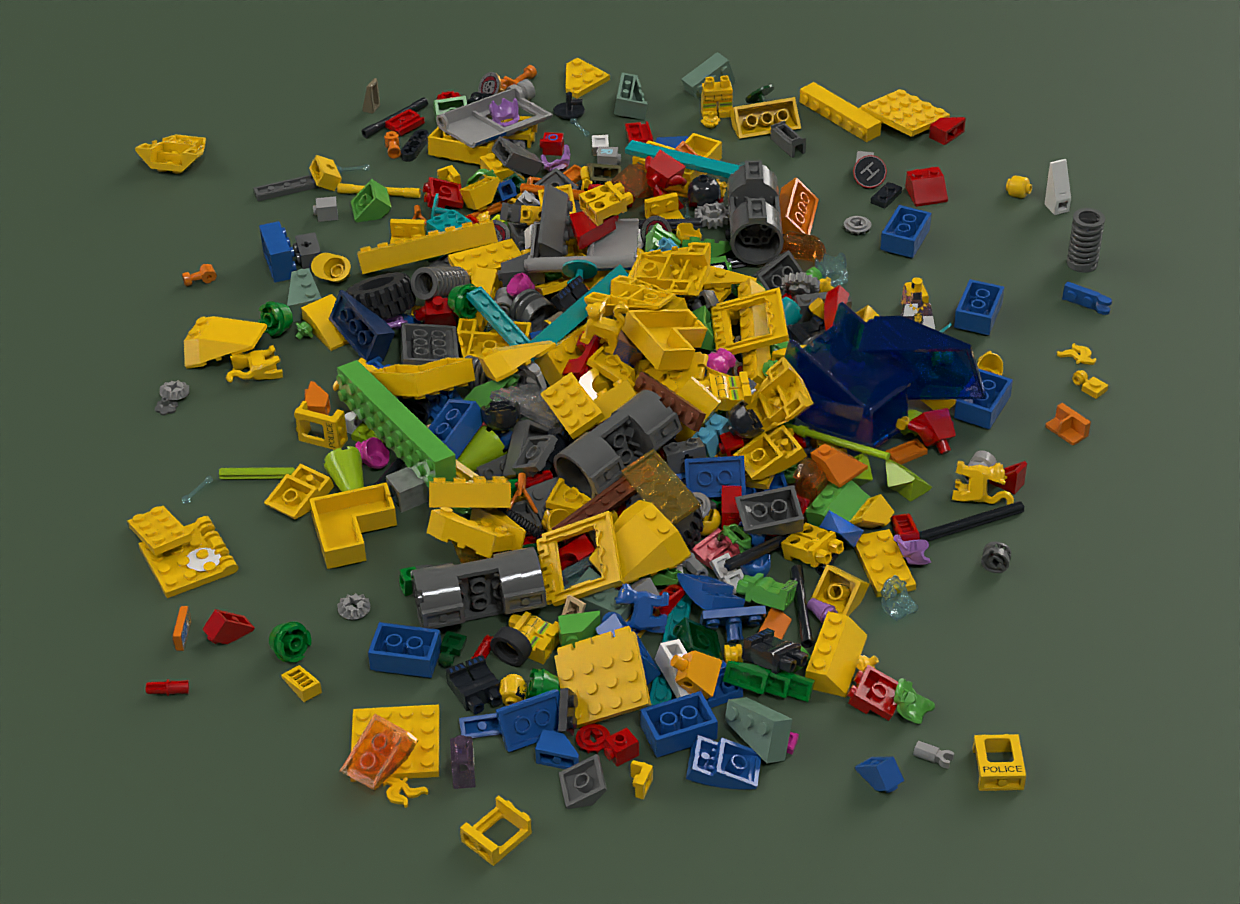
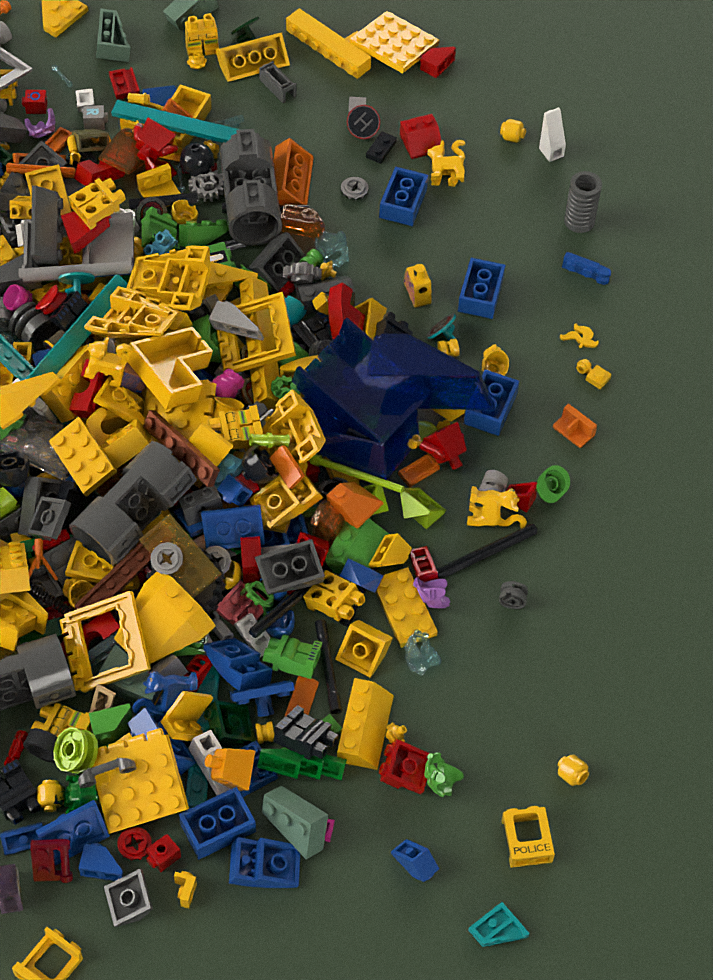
camera: 10 degrees left, 15 degrees up
(501, 741) = (44, 860): none -> dark red plate
(542, 646) = (75, 750): none -> lime wheel
(551, 667) = (88, 779): none -> dark grey bar
(553, 286) = (51, 300): none -> red piece
(567, 716) = (107, 830): plate -> none
(570, 109) = (49, 53): black shield -> none
(650, 479) = (168, 549): none -> light grey gear
(653, 140) = (143, 99): none -> yellow pin
(655, 623) = (182, 717): none -> yellow bracket
(719, 442) = (234, 491): none -> blue brick
(728, 308) = (230, 319): none -> light grey slope
(758, 400) = (269, 440): none -> lime pin
(773, 423) = (287, 467): none -> orange tile
(820, 608) = (348, 671): medium lavender cone -> none
(918, 311) = (420, 305): torso -> none
(933, 754) = (464, 831): light grey bar -> none
(951, 210) = (447, 164): none -> yellow animal
(963, 838) = (498, 927): none -> teal wing
(1042, 467) = (553, 483): none -> bright green piece
(1050, 708) = (573, 770): none -> yellow head

